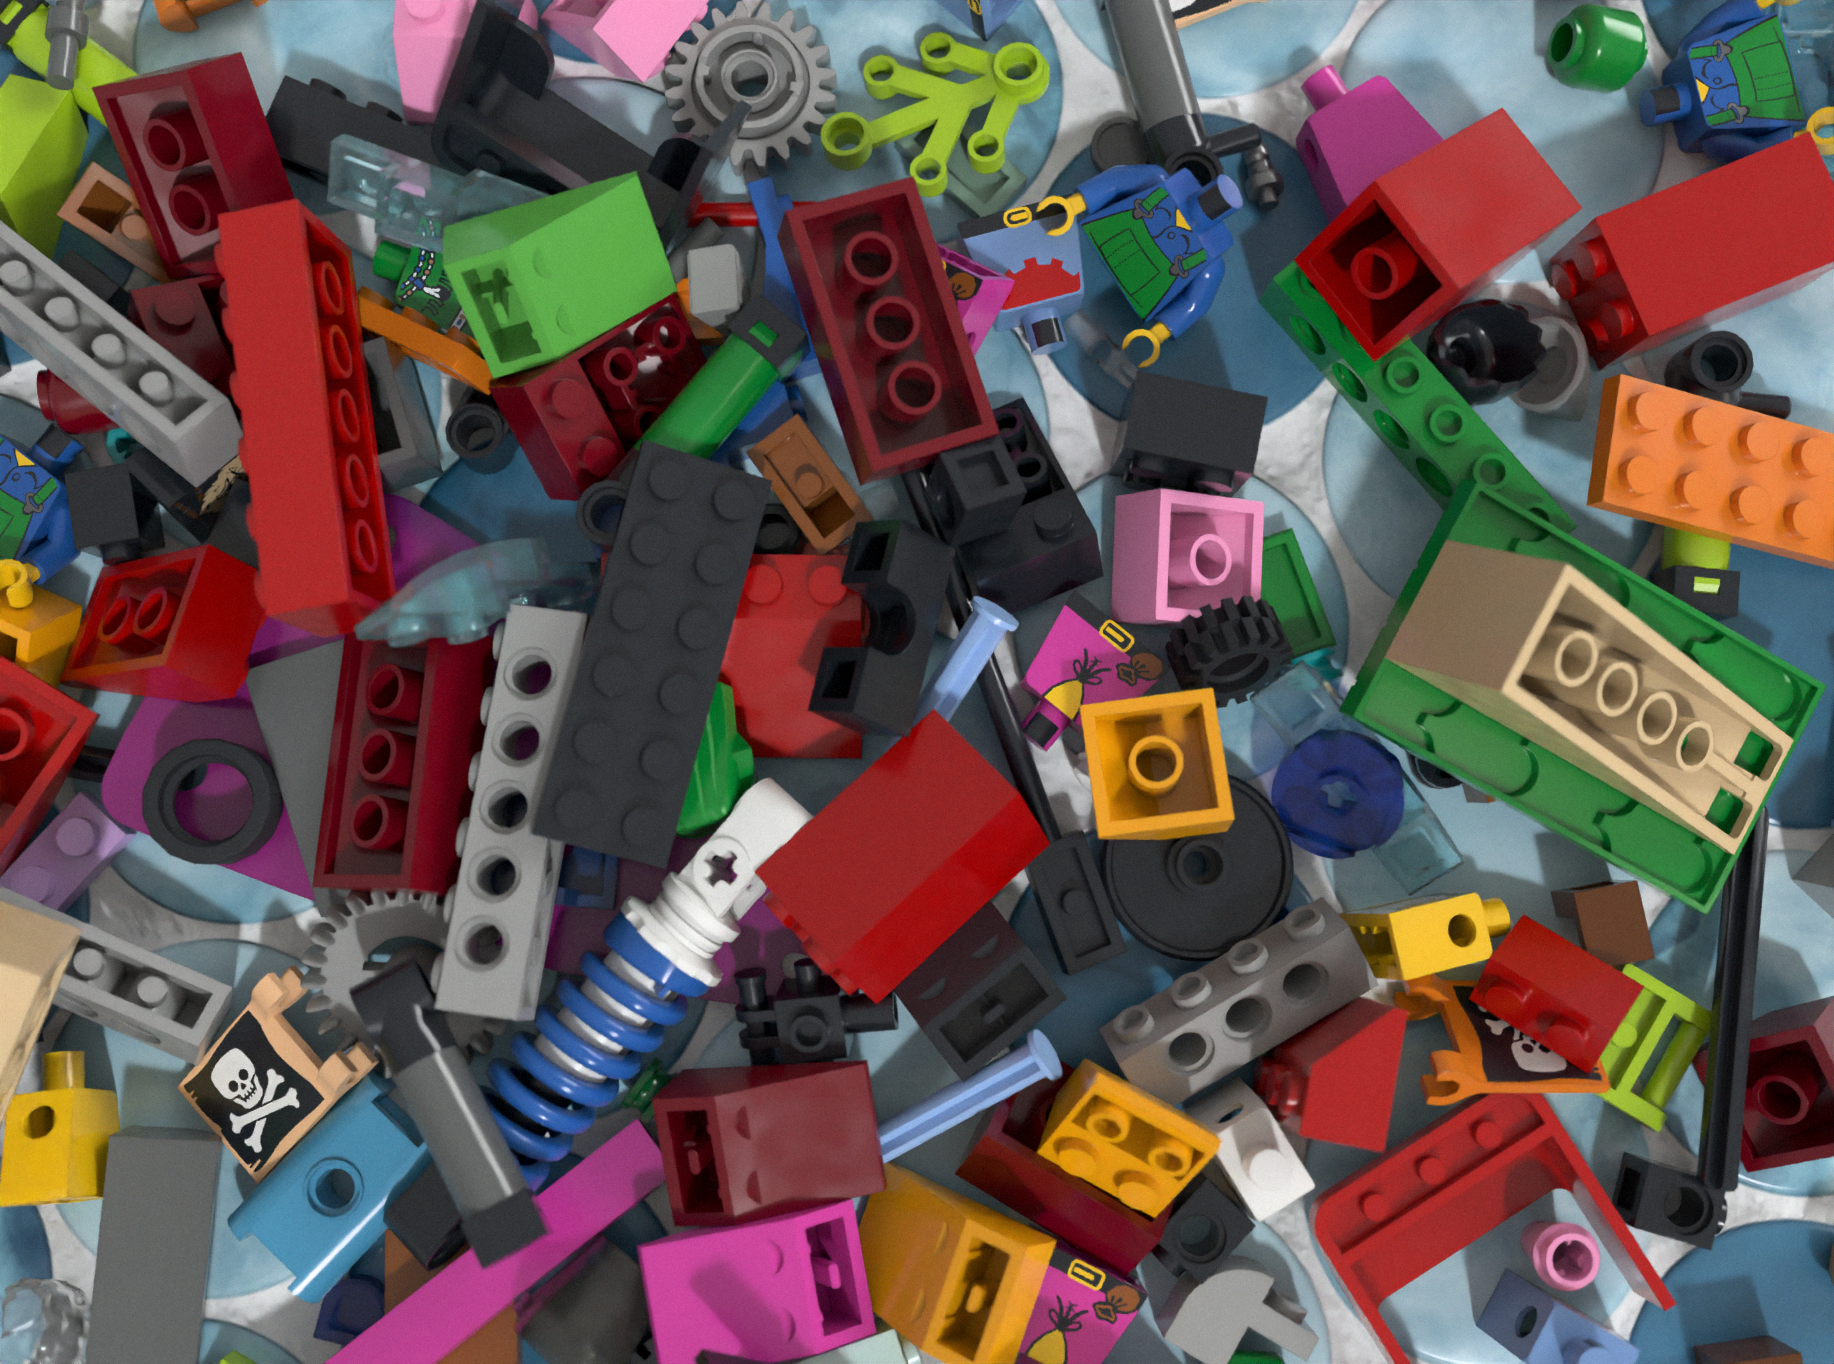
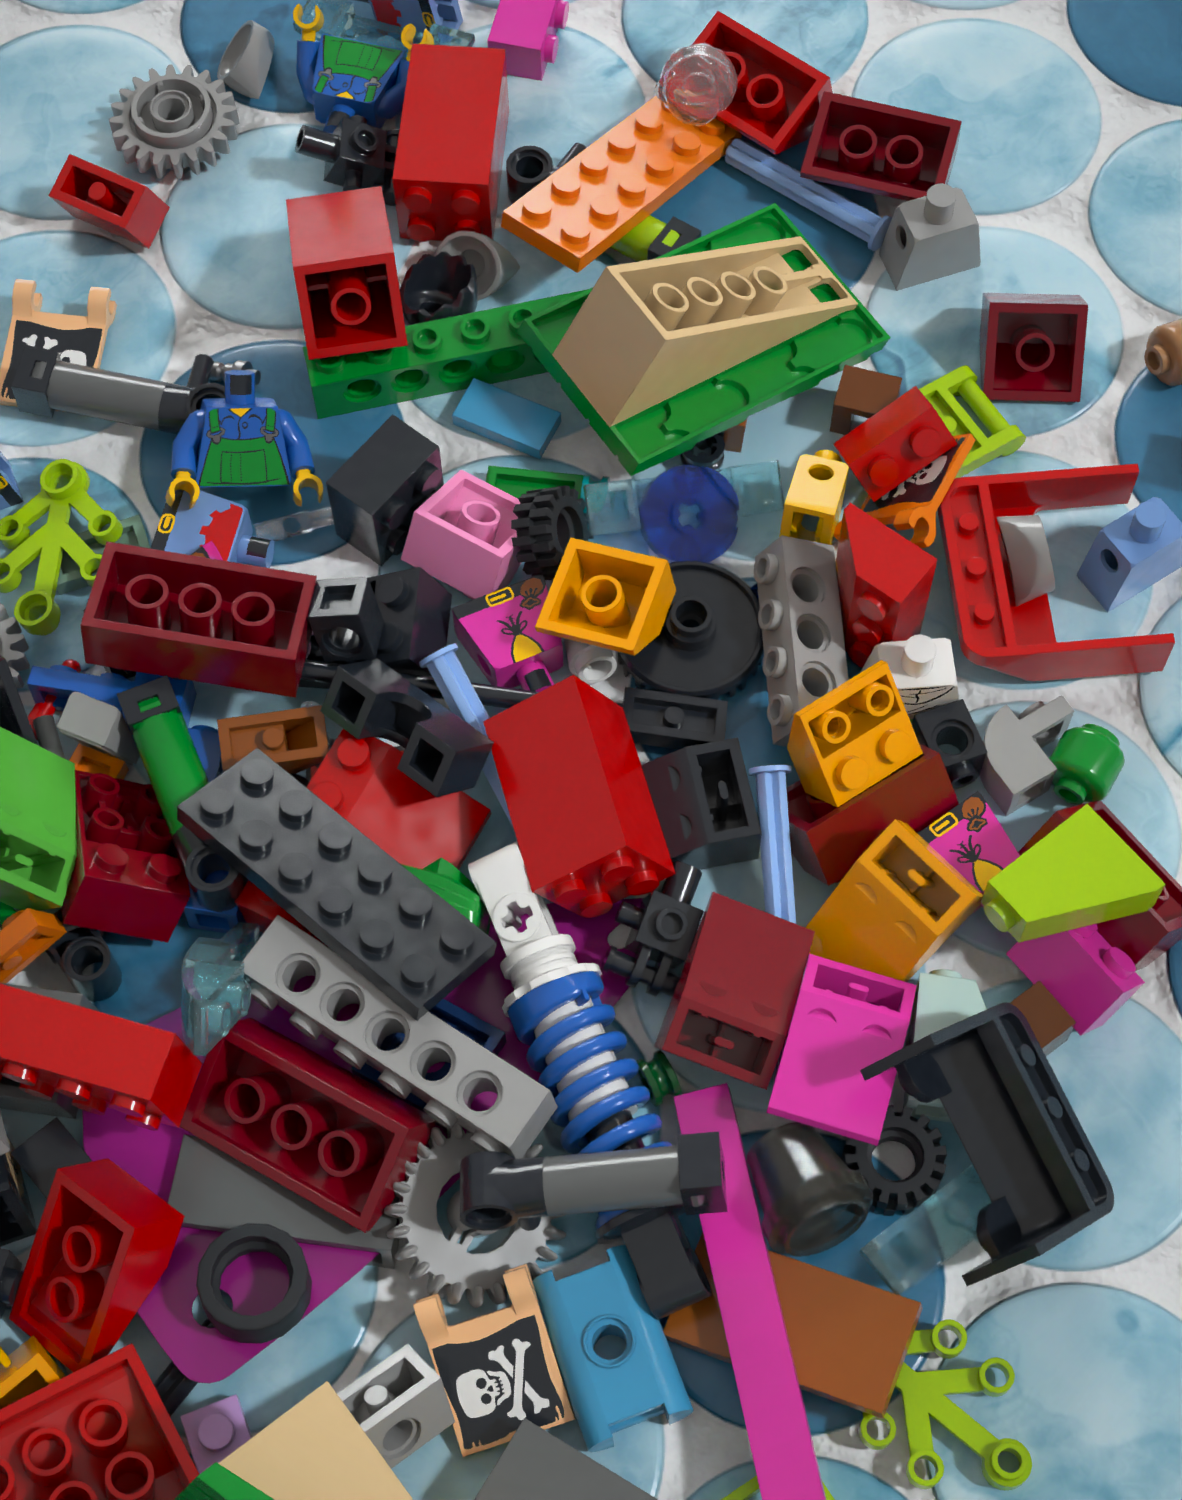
camera: 60 degrees left, 20 degrees down
(350, 1309) = (714, 1396): clear blue tile -> none
(1118, 143) = (153, 451): dark grey piece -> none
(1356, 136) = (251, 303): dark pink torso -> none
(1367, 514) = (506, 418): none -> dark azure tile
(1482, 1221) = (1027, 556): none -> light grey piece
(1561, 1254) = (1074, 524): bright pink cone -> none
(1597, 48) = (272, 143): green head -> none
(1626, 144) = (353, 154): none -> black piece
(1642, 1195) = (1074, 430): black brick -> none
(1732, 1015) = (967, 354): black axle -> none

